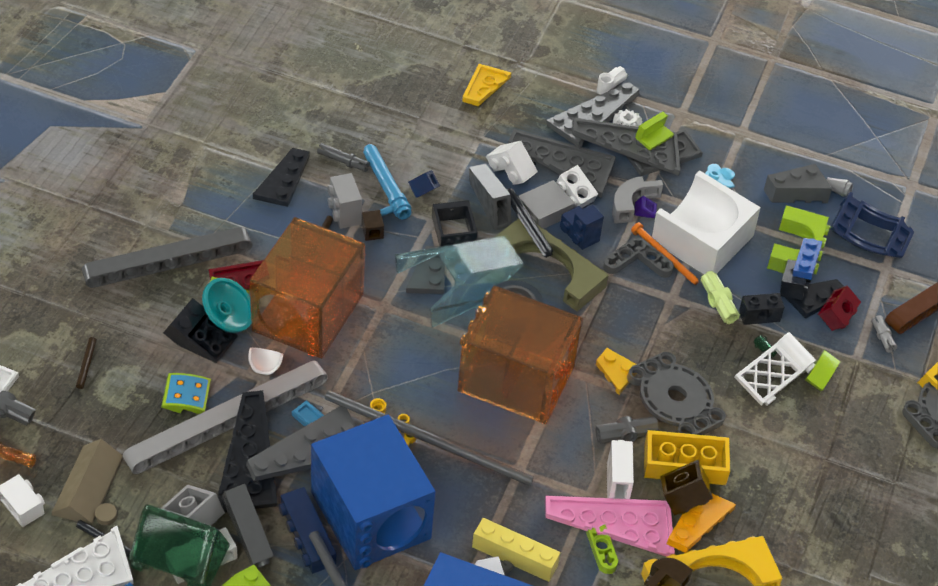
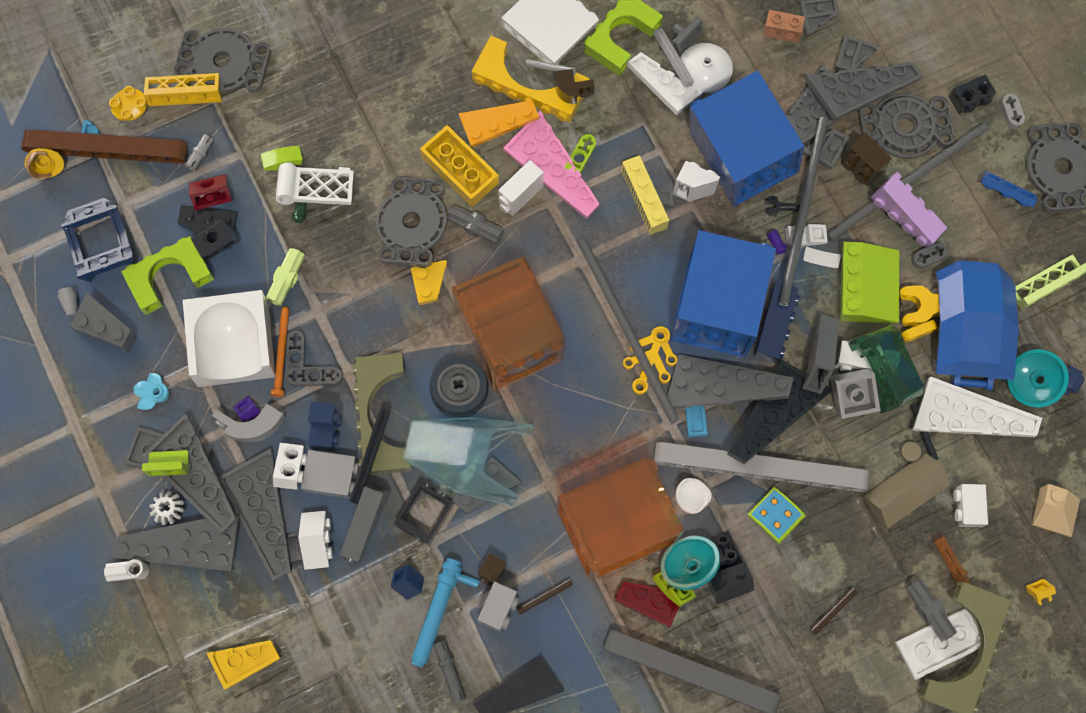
camera: 135 degrees left, 25 degrees up
(686, 488) = (490, 137): dark brown brick -> none
(761, 308) = (267, 240): black brick -> none
(807, 258) = (189, 242): plate -> none

